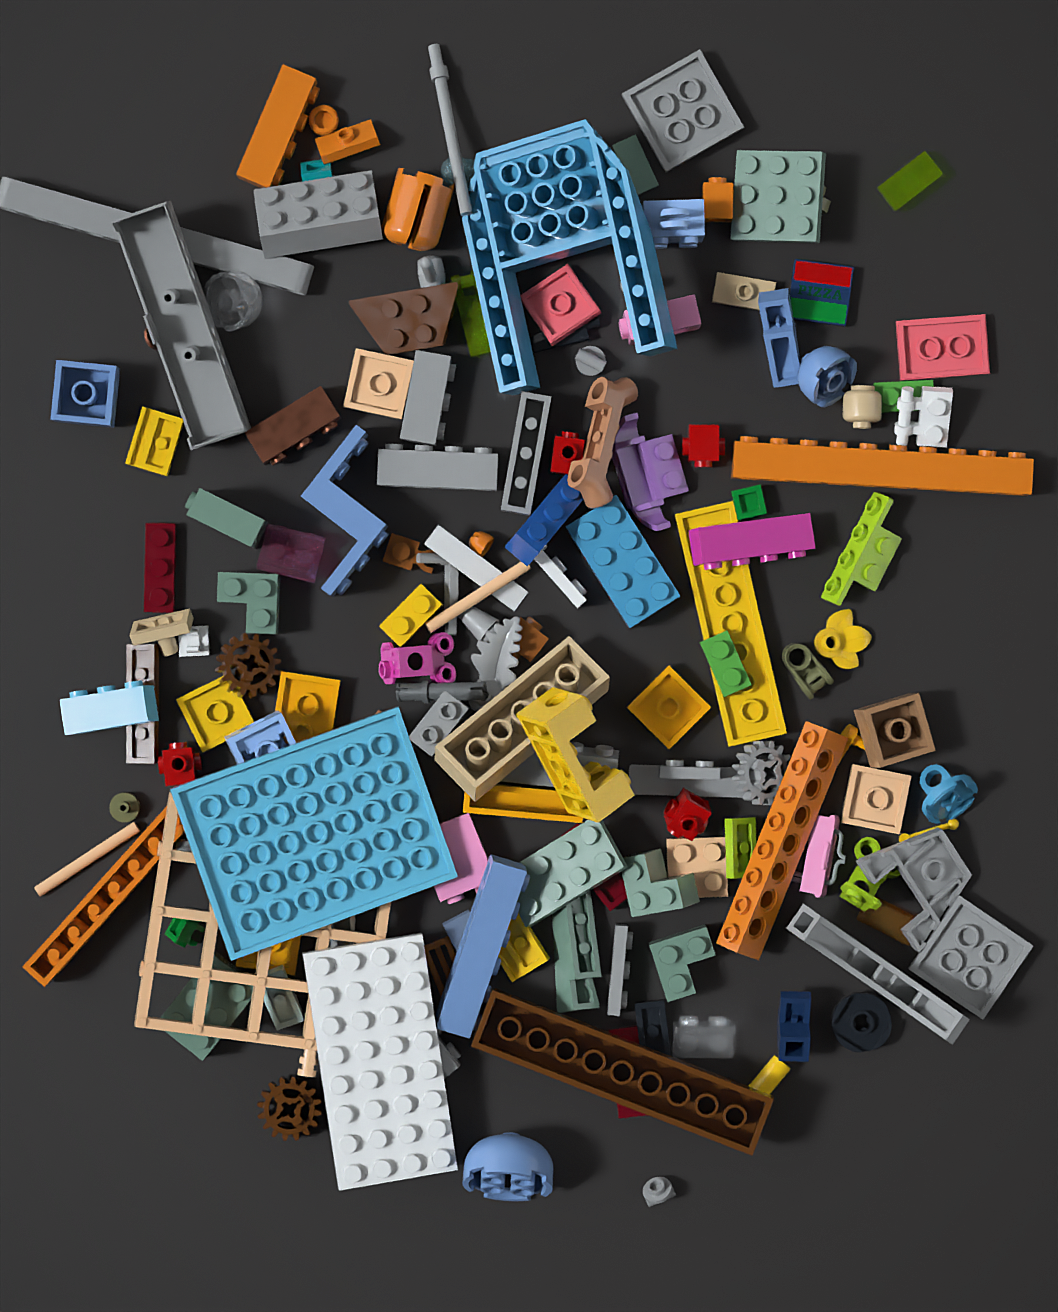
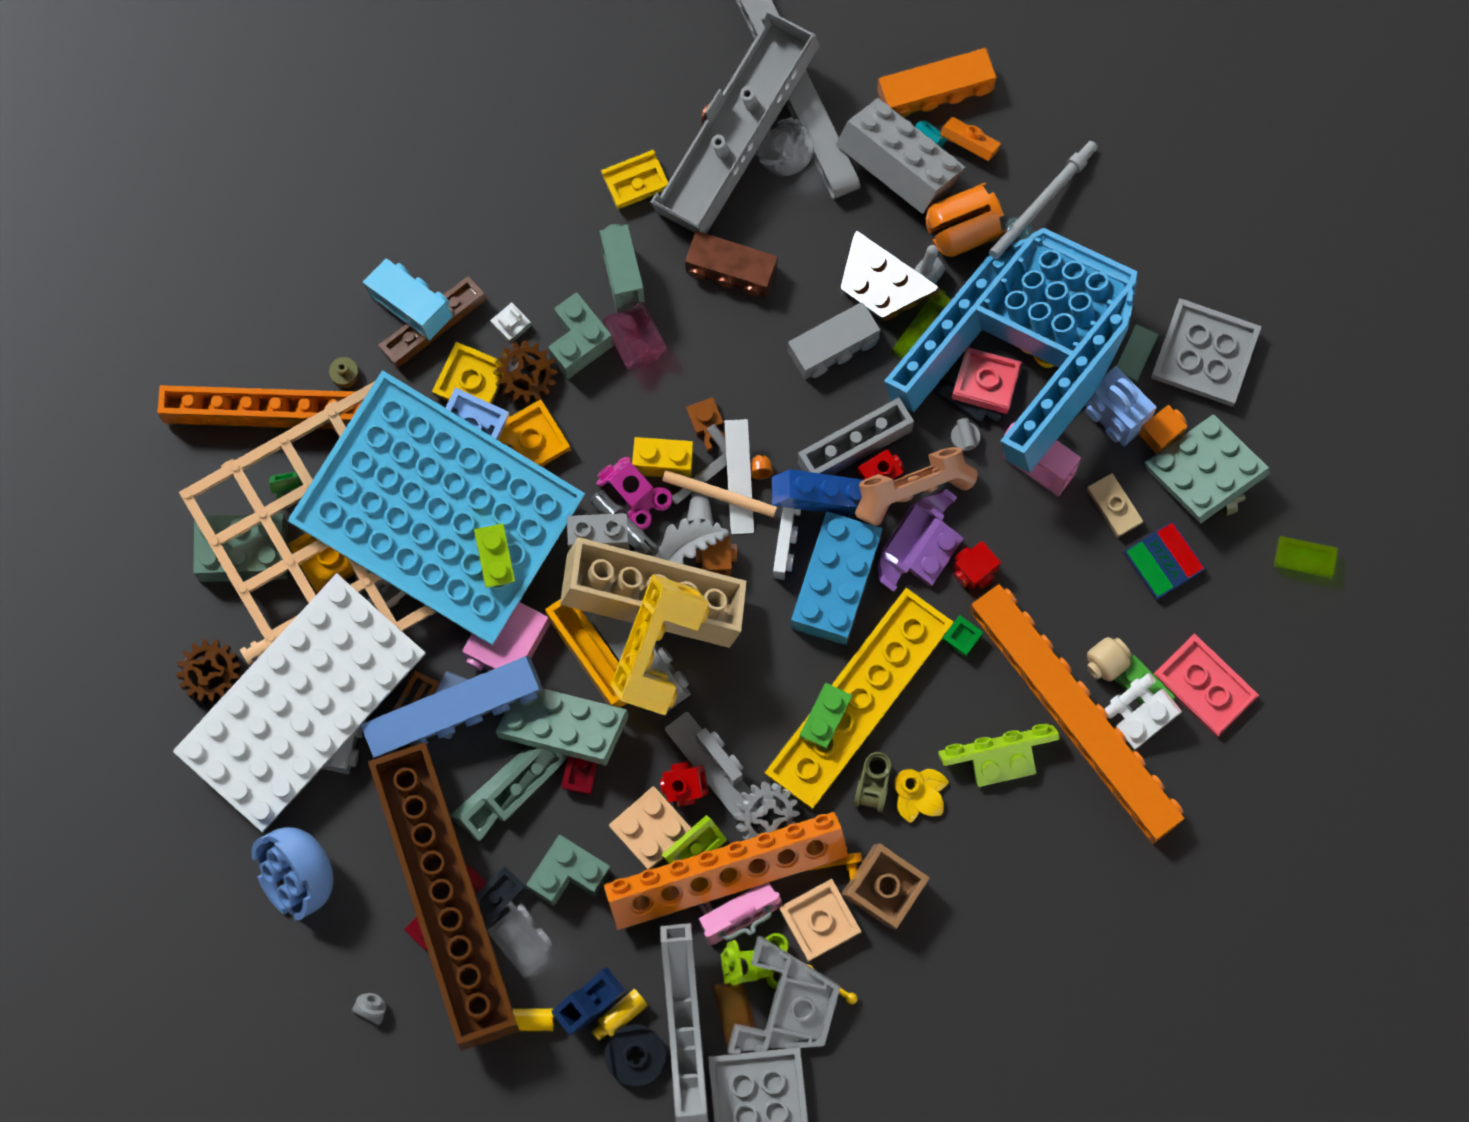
camera: 55 degrees right, 15 degrees down
(85, 393) = (628, 102): medium blue brick -> none
(87, 859) = (278, 375): light nougat piece -> none
(160, 567) = (545, 257): dark red plate -> none
(163, 629) = (500, 292): tan tile -> none
(168, 766) = (413, 375): red brick -> none
(282, 1004) = (287, 598): light aqua plate -> none
(323, 120) = (971, 112): orange tile -> none
(346, 511) = (698, 373): medium blue bracket -> none
(378, 384) = (813, 297): light nougat plate -> none
(391, 820) = (494, 556): none -> lime plate
(437, 469) = (788, 390): light grey brick -> none
(522, 951) = (476, 744): yellow plate -> none
(619, 969) = (521, 831): light grey plate -> none
(651, 889) = (606, 802): sand green brick -> none
(668, 707) = (756, 704): light orange plate -> none
(752, 539) = (936, 657): dark pink brick -> none
(780, 336) = (1105, 556): medium blue slope -> none
(821, 1008) = (620, 1015): none -> yellow cylinder
(825, 374) = (1108, 611): medium blue cylinder -> none
(949, 797) = (869, 970): dark azure tile -> none

